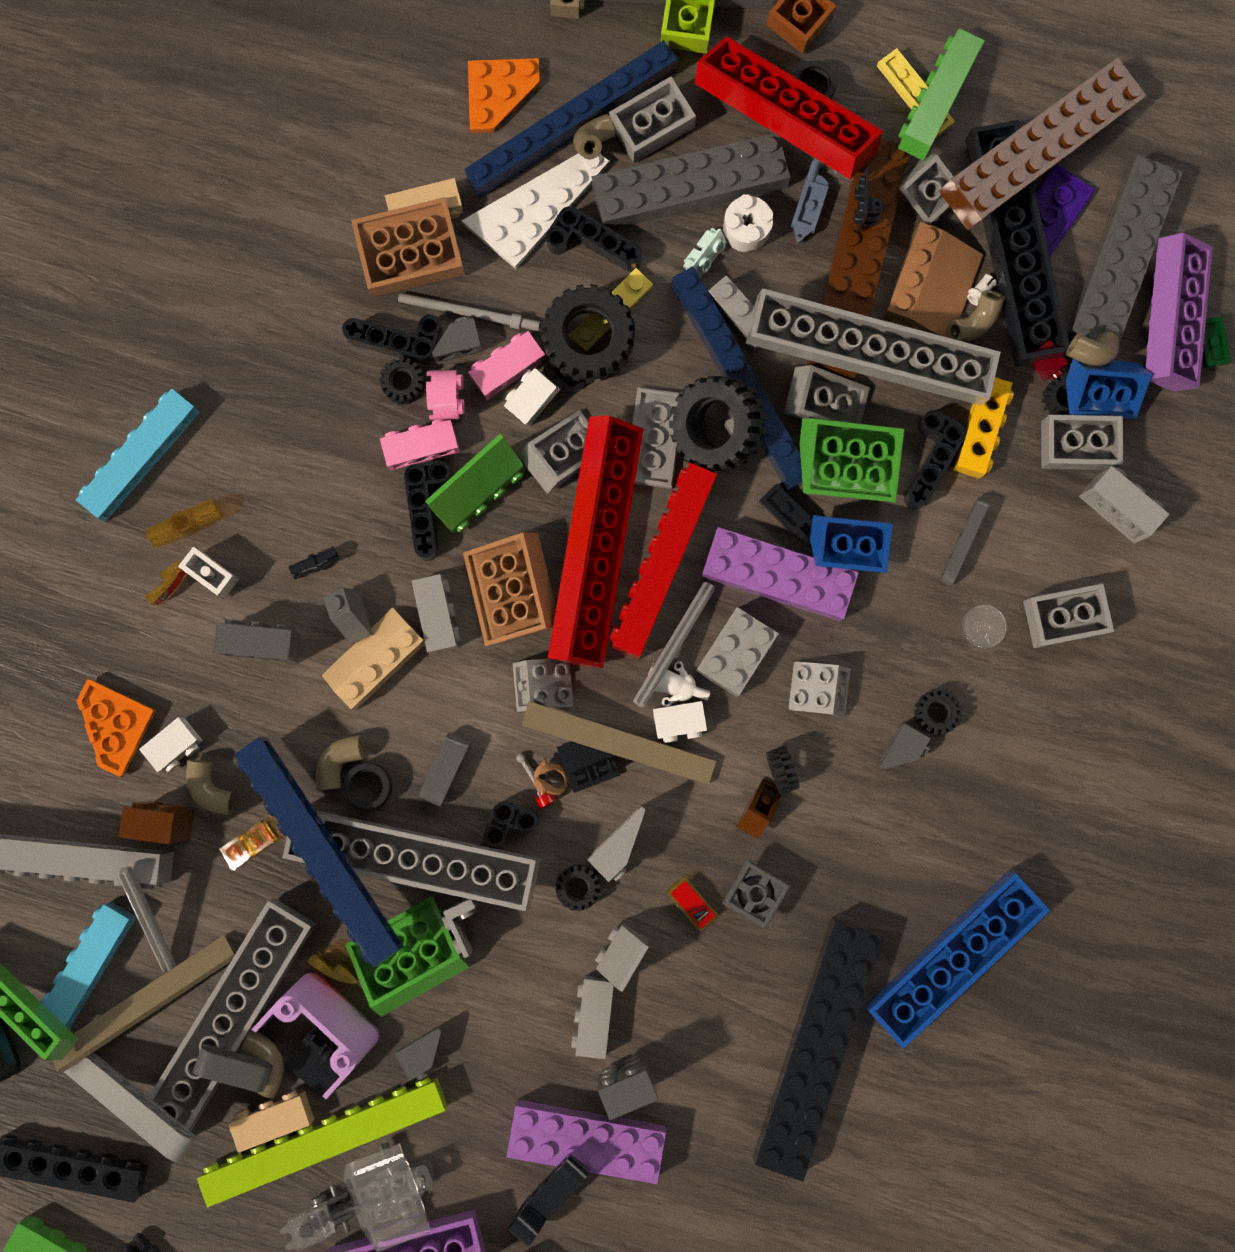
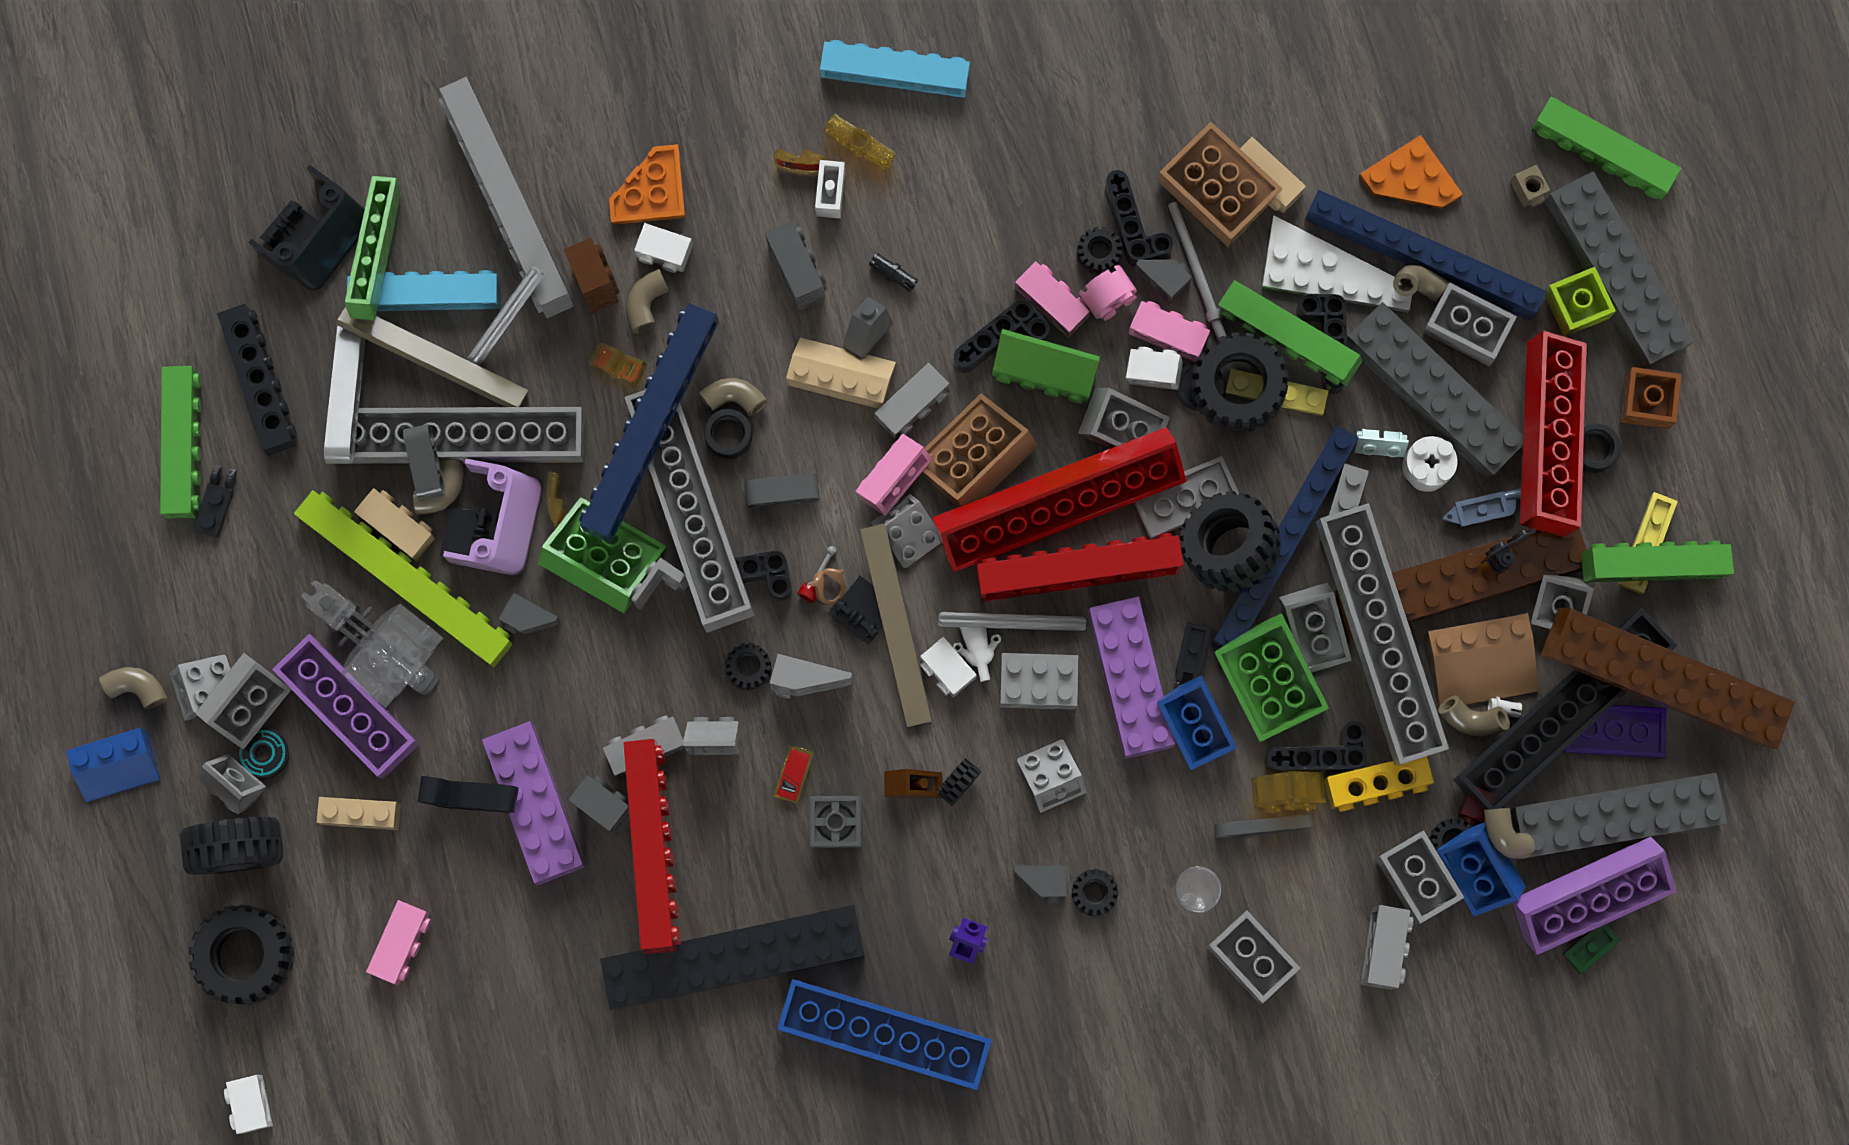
camera: 60 degrees right, 5 degrees down
(489, 667) = (893, 474): none -> bright pink brick
(570, 267) = (1290, 333): none -> bright green brick
(691, 1069) = (650, 846): none -> red brick
(918, 841) = (968, 940): none -> dark purple brick
(950, 503) = (1288, 791): none -> clear yellow brick

